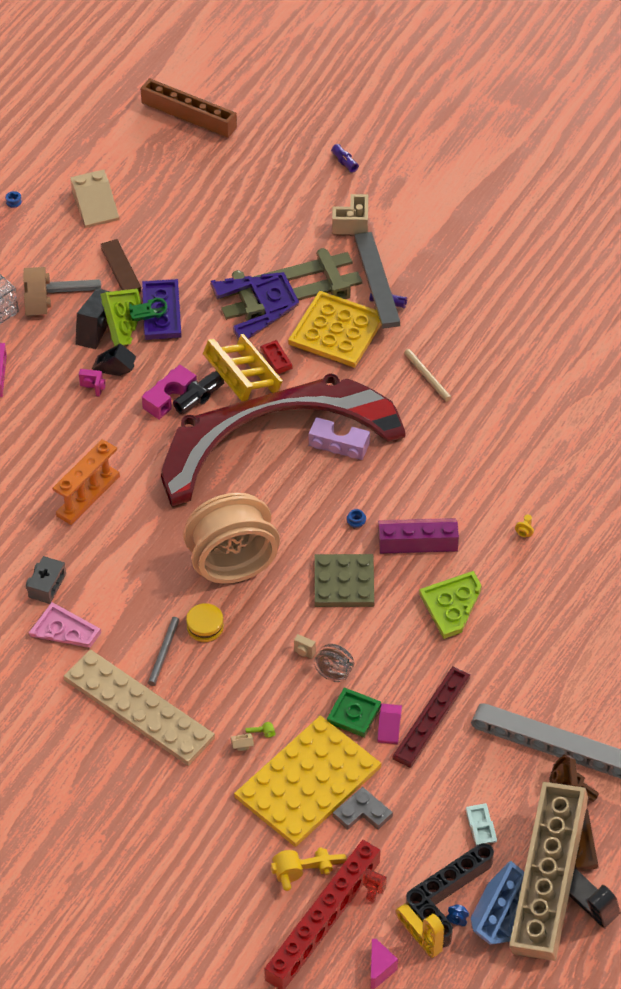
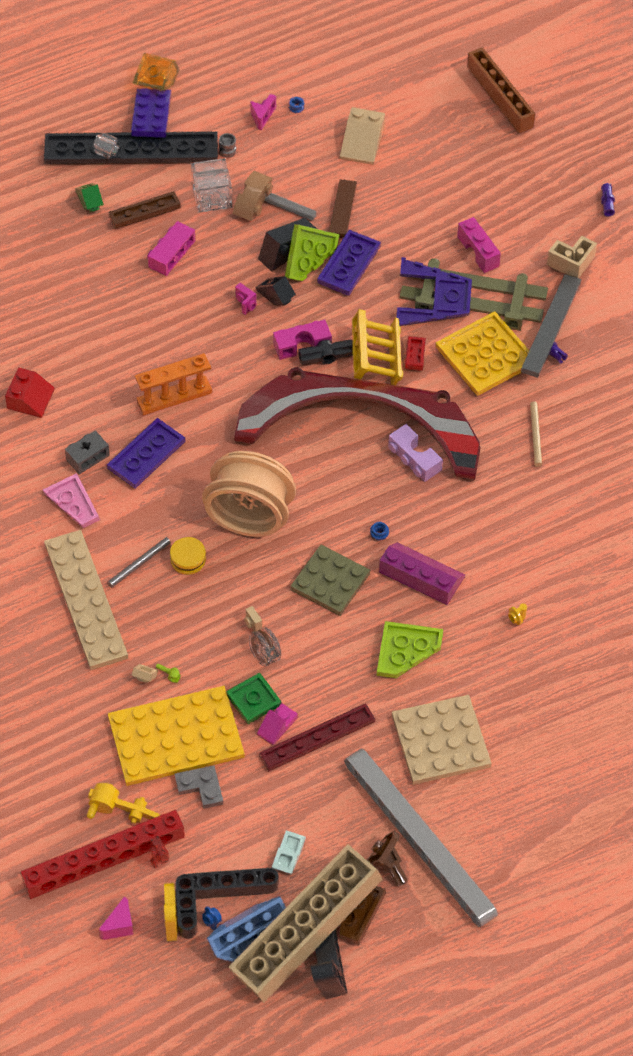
camera: 30 degrees right, 5 degrees up
(100, 554) = (146, 453): none -> dark purple plate
(144, 311) = (330, 257): green piece -> none
(277, 246) = (486, 253): none -> dark pink arch
(537, 663) = (441, 739): none -> tan plate

